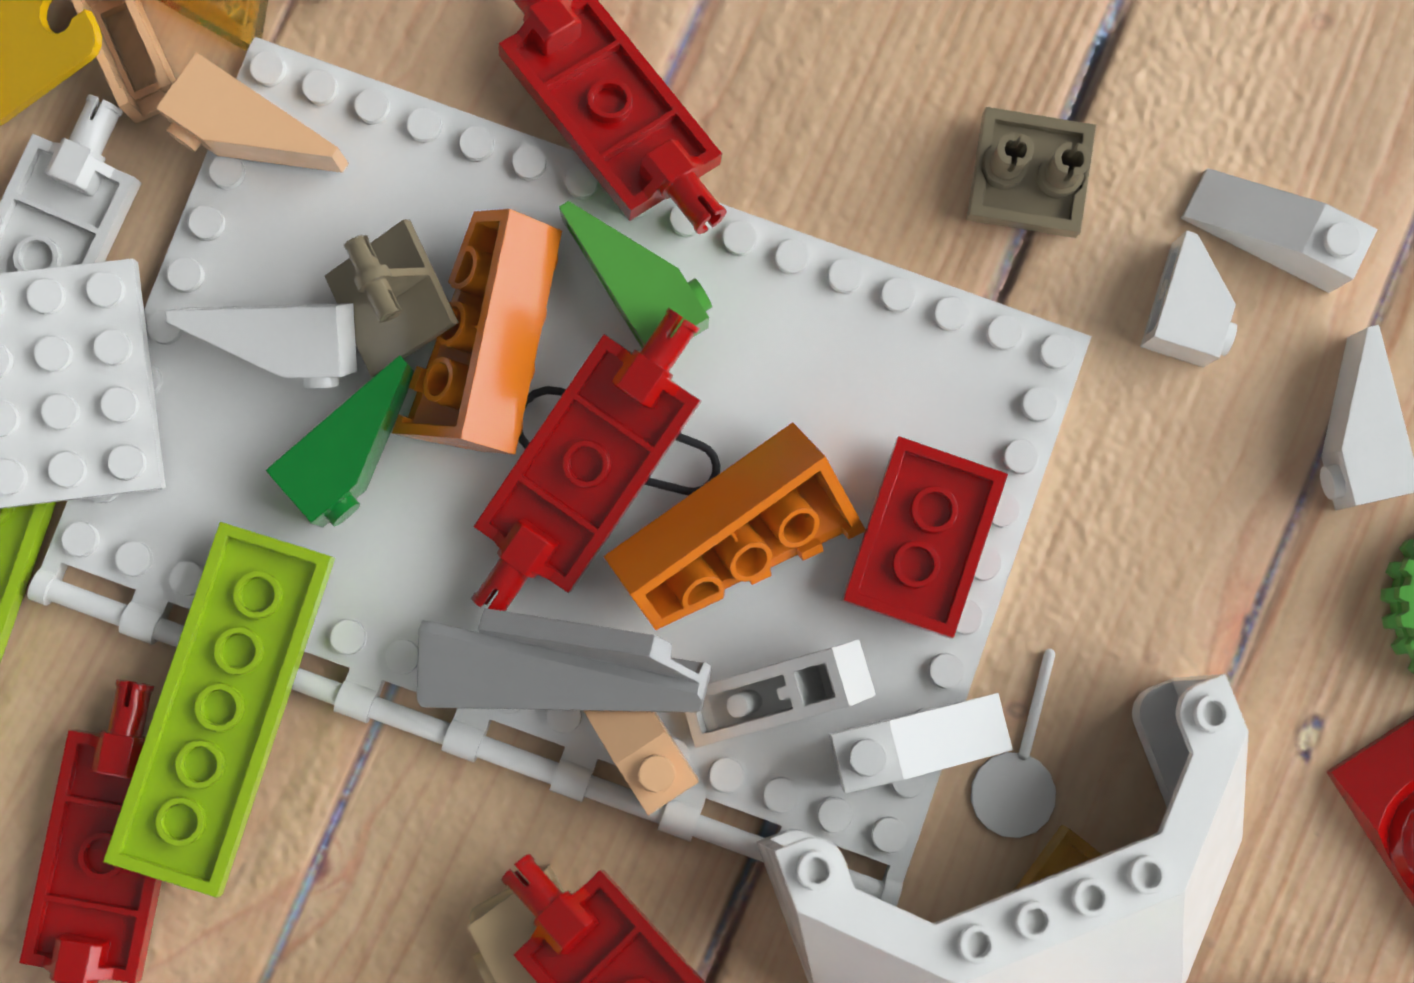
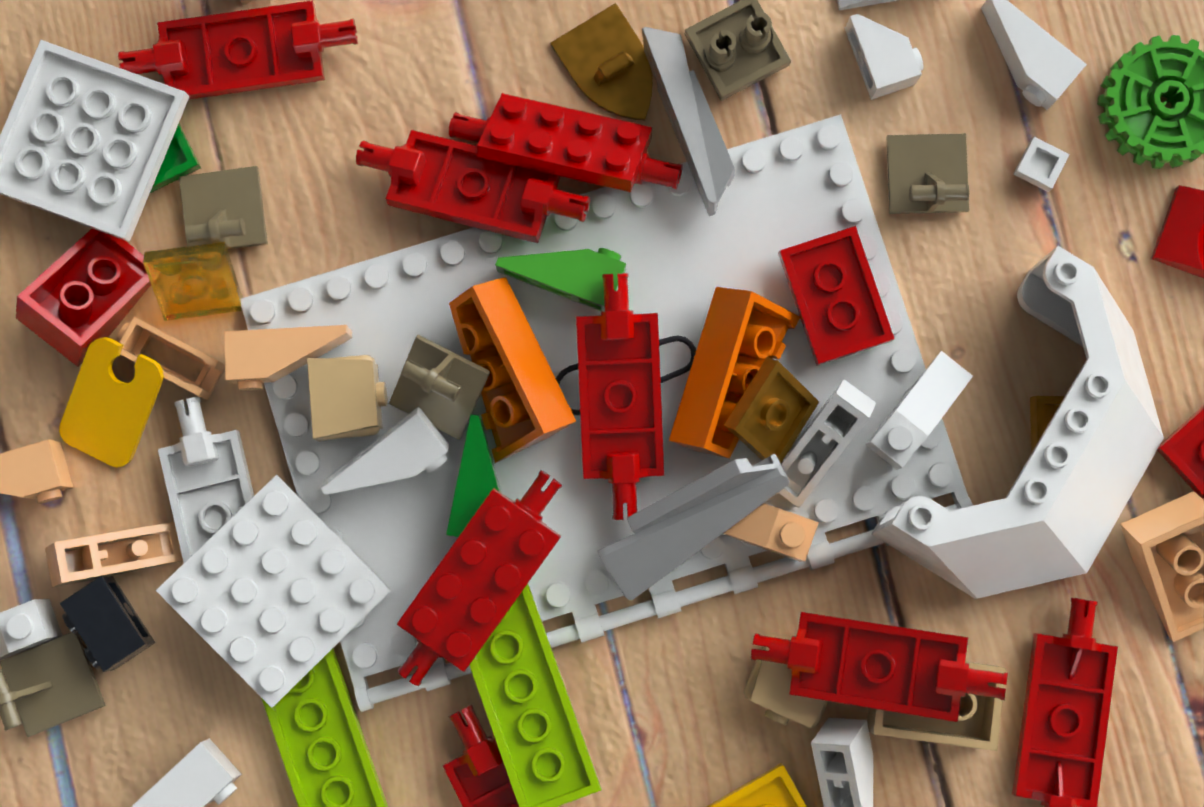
camera: 30 degrees left, 0 degrees up
(263, 548) = (479, 579): none -> red plate
(278, 230) = (345, 397): none -> tan torso
(745, 613) = (771, 411): none -> pearl gold plate
(751, 135) = (566, 144): none -> red plate
(871, 84) = (608, 63): none -> pearl gold shield
(916, 207) = (689, 115): none -> light grey wedge
(1012, 789) = (989, 398): white piece -> none
(1140, 478) = (927, 173): none -> dark tan plate
(1280, 566) = (1041, 164): none -> white plate

